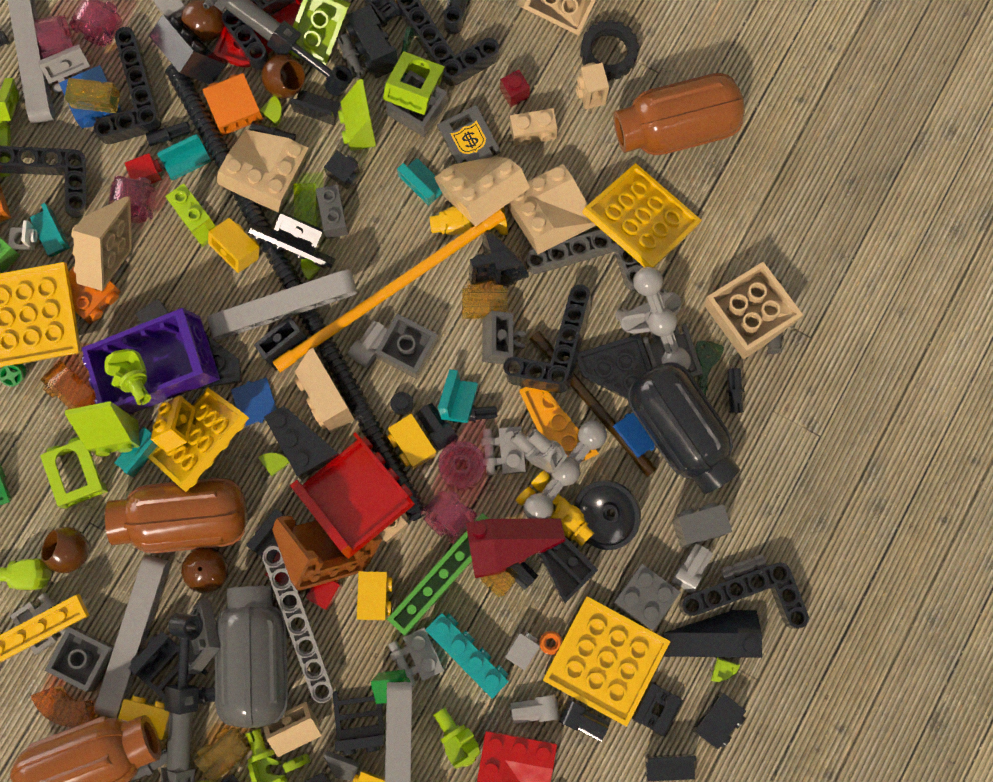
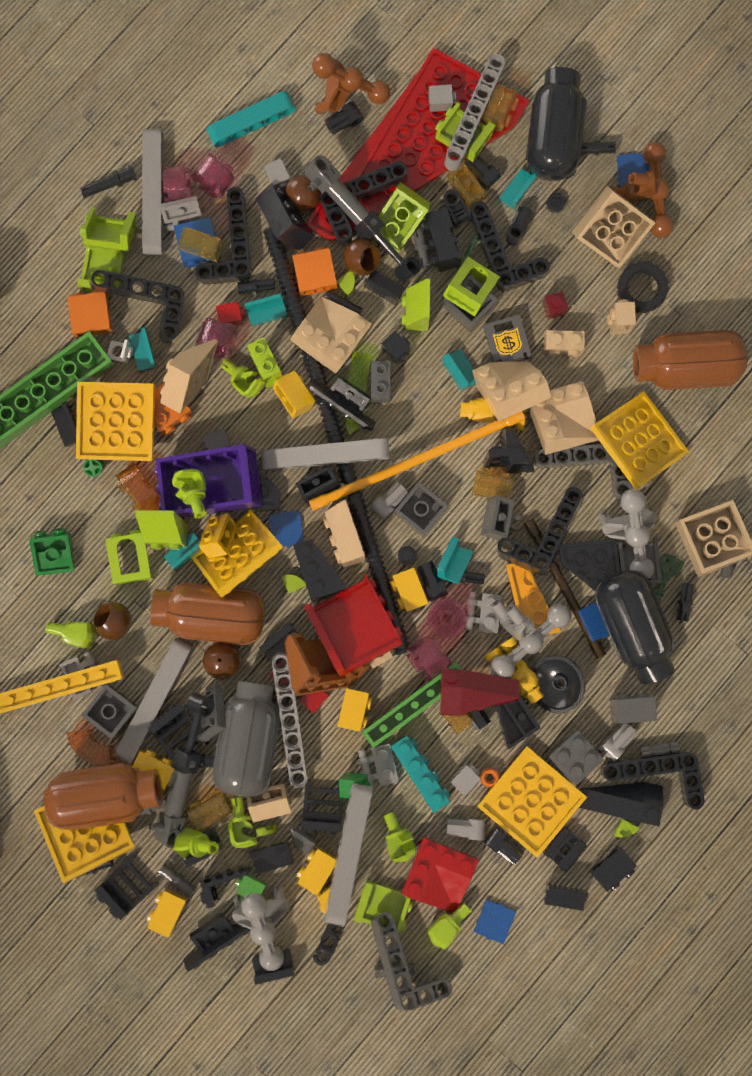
camera: 15 degrees right, 5 degrees up
(172, 240) = (242, 379): none -> lime piece

